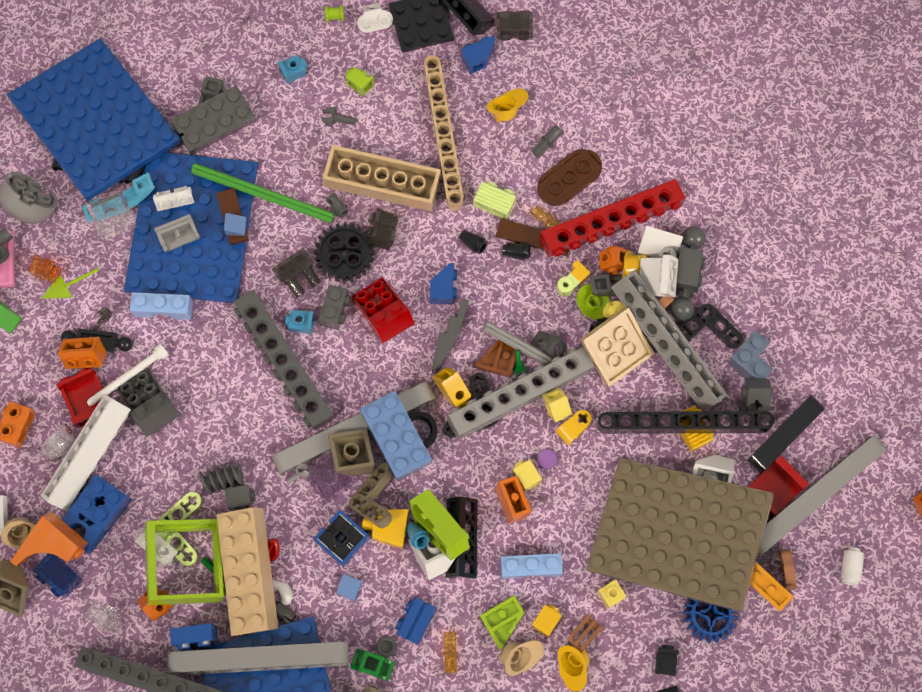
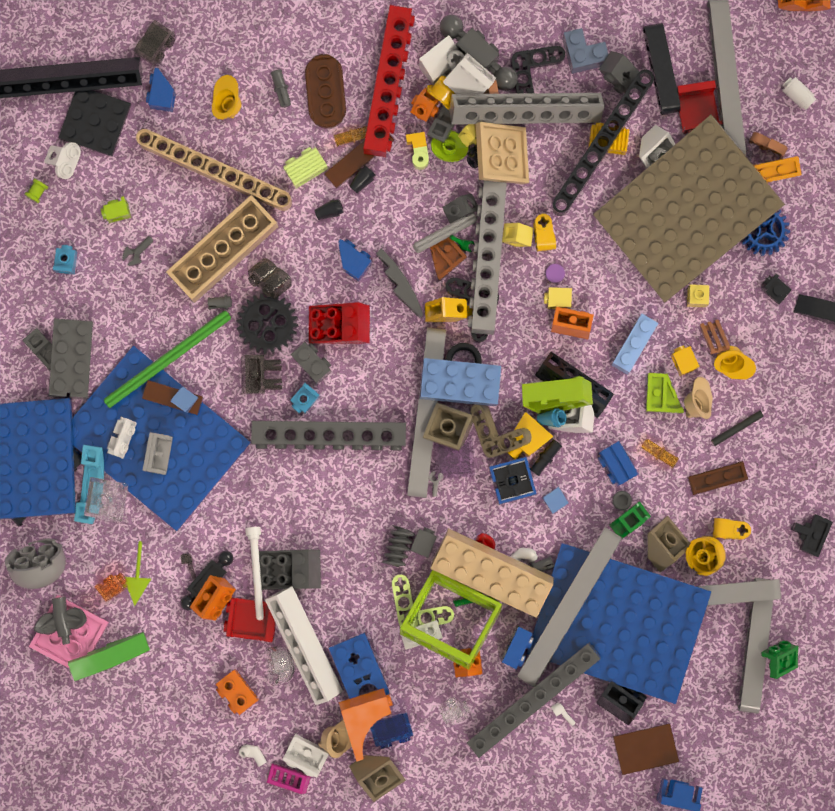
camera: 55 degrees left, 10 degrees up
(165, 304) = (212, 506): light blue arch -> none
(381, 554) = (546, 457): none -> black pin

